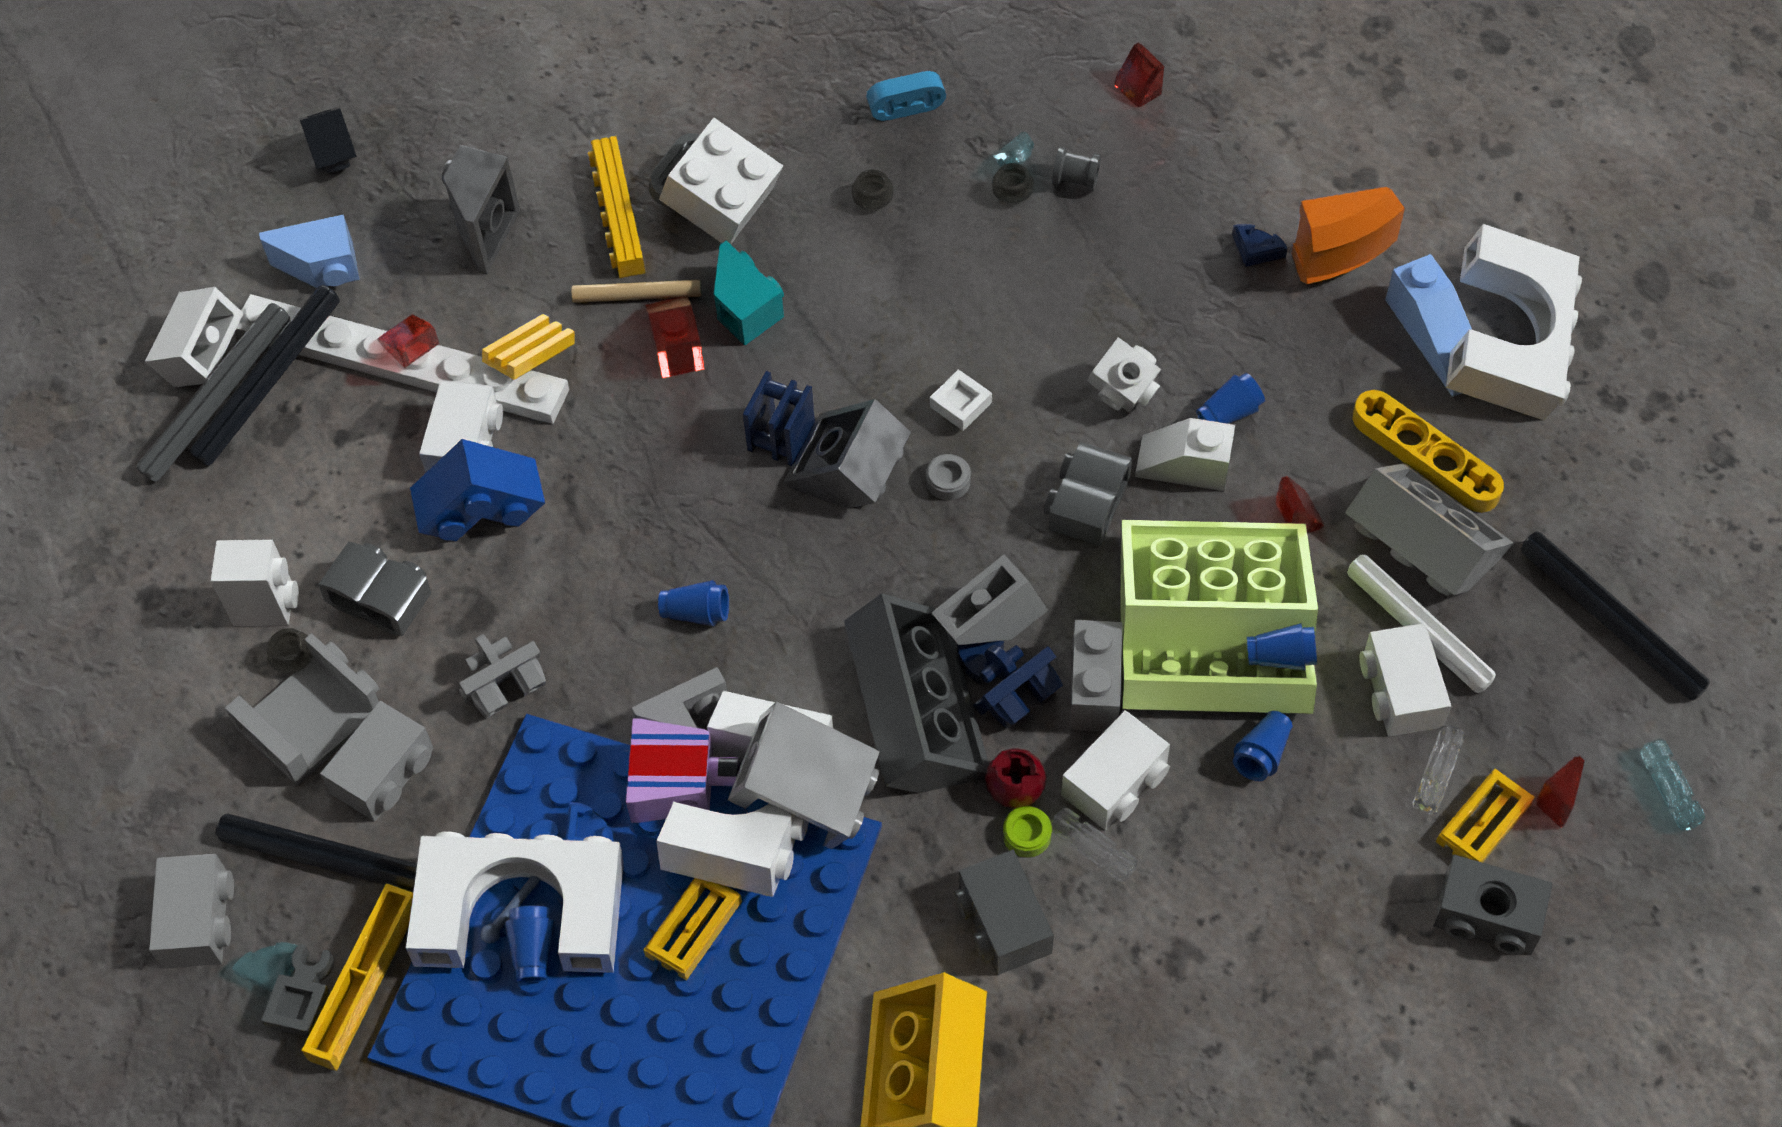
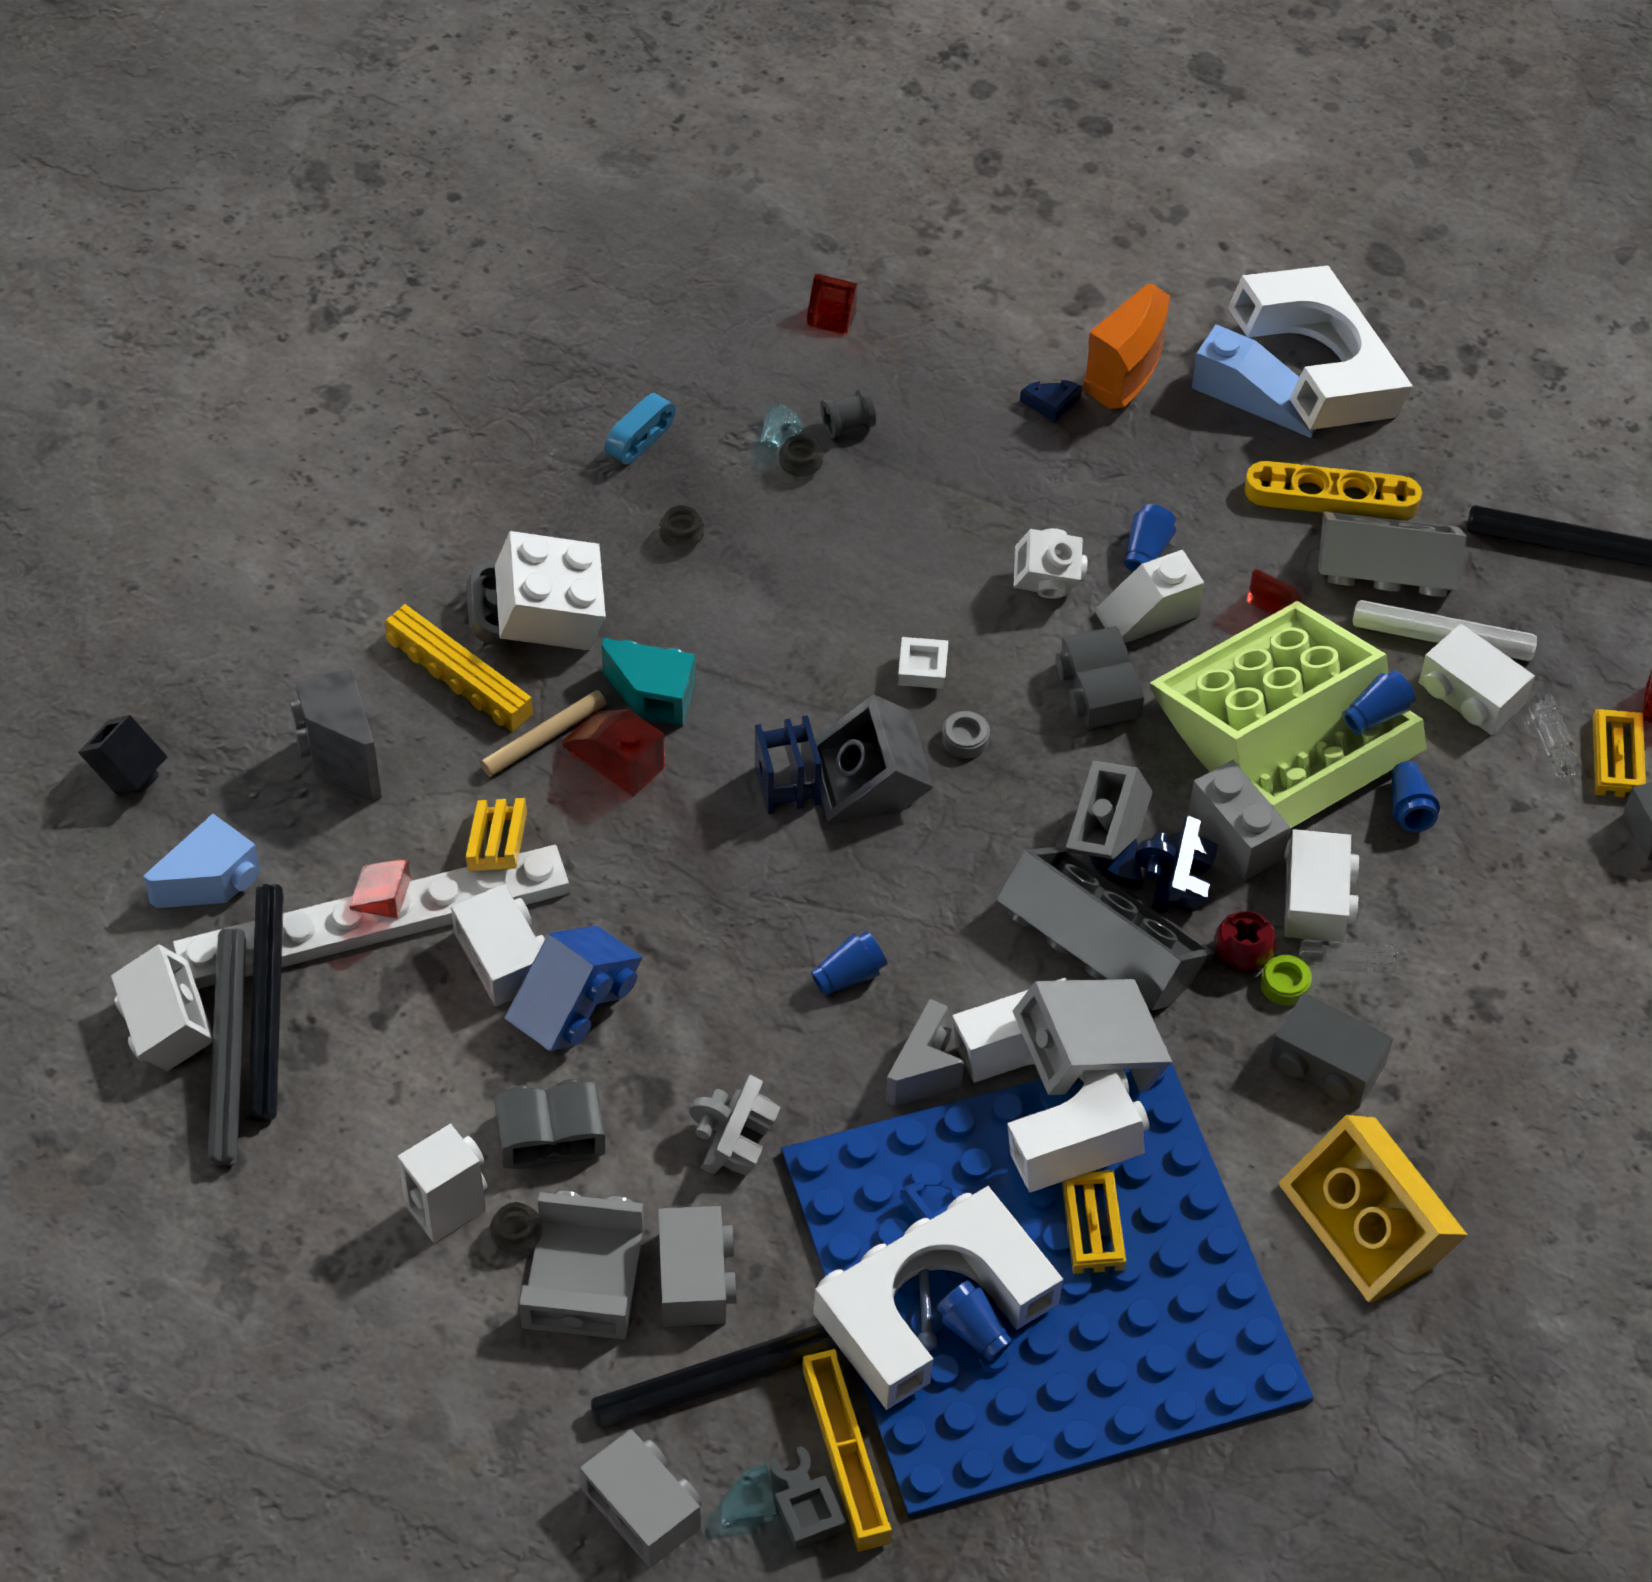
camera: 40 degrees left, 5 degrees down
(672, 766) = (967, 1105): torso -> none

